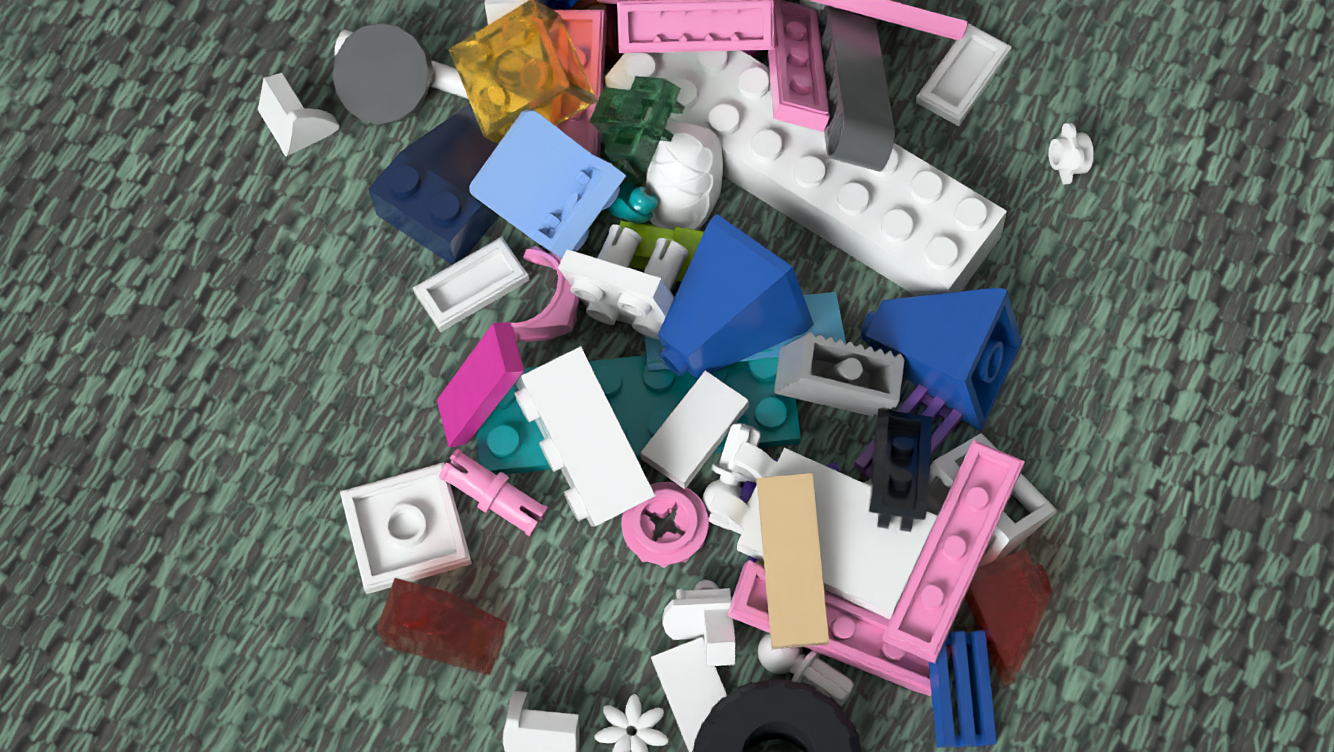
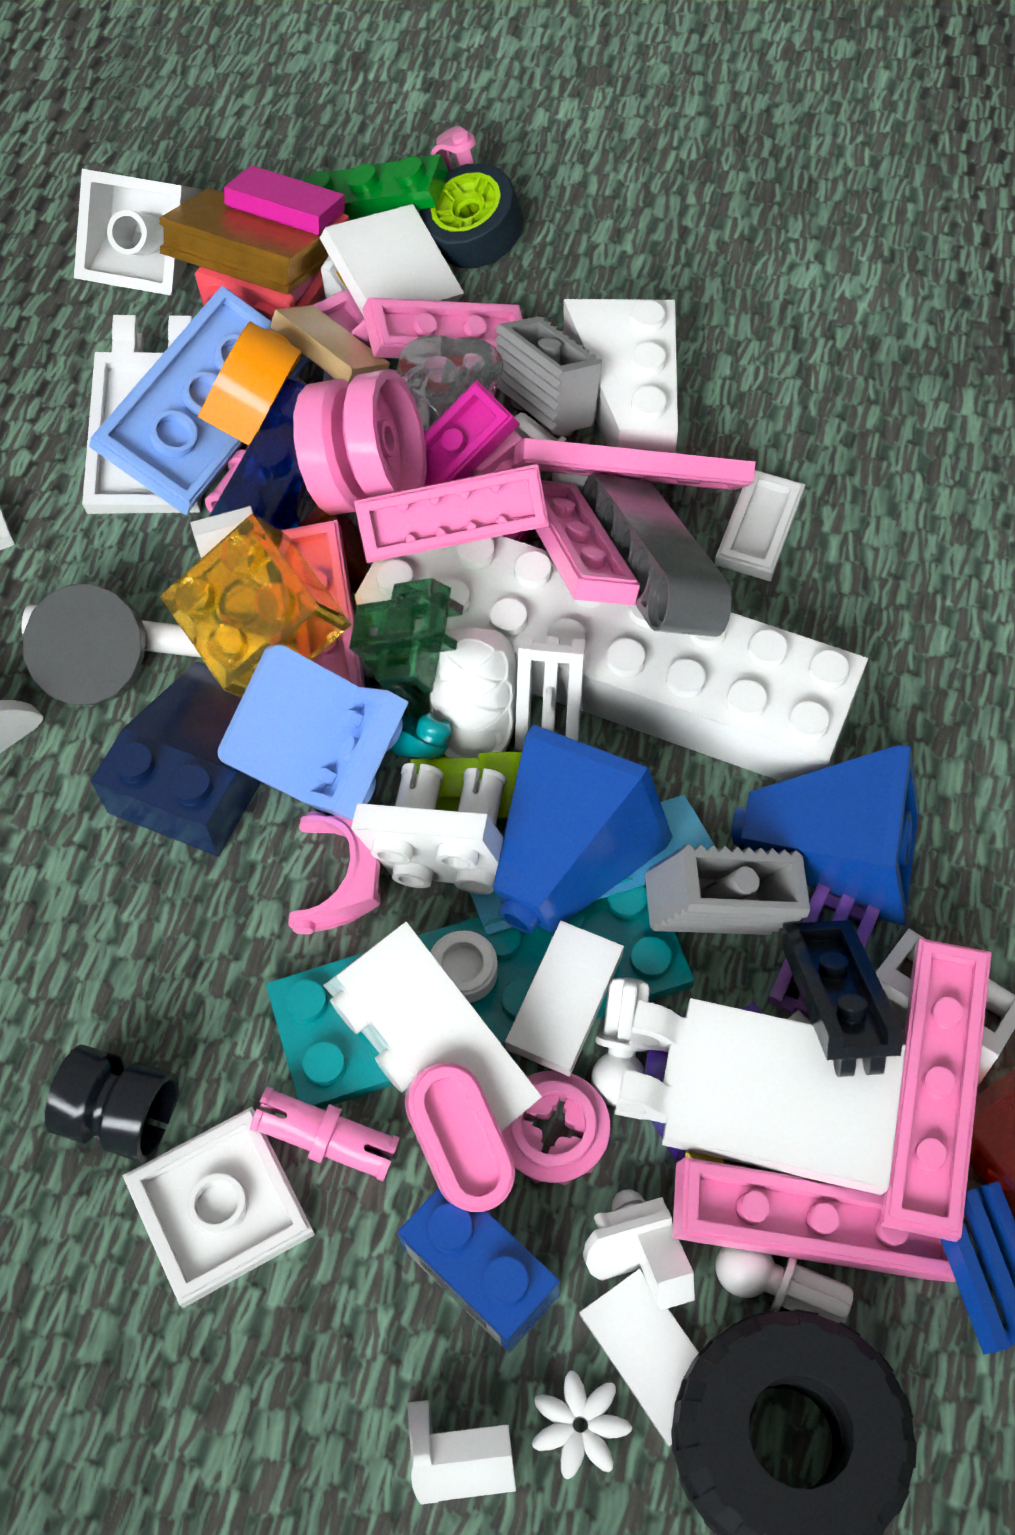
camera: 15 degrees left, 5 degrees down
(337, 434) = (104, 1100): none -> black wheel
(440, 627) = (292, 1336): clear red slope -> none
(471, 284) = (241, 873): white tile -> none
(480, 384) = (282, 995): dark pink tile -> none
(585, 606) = (480, 1267): none -> blue brick
(587, 510) = (460, 1137): none -> bright pink tile
(626, 389) = (468, 962): none -> white tile
(748, 159) = (552, 654): none -> white tile
(792, 561) = (746, 1149): tan tile -> none
(1071, 153) = (910, 584): white plate -> none

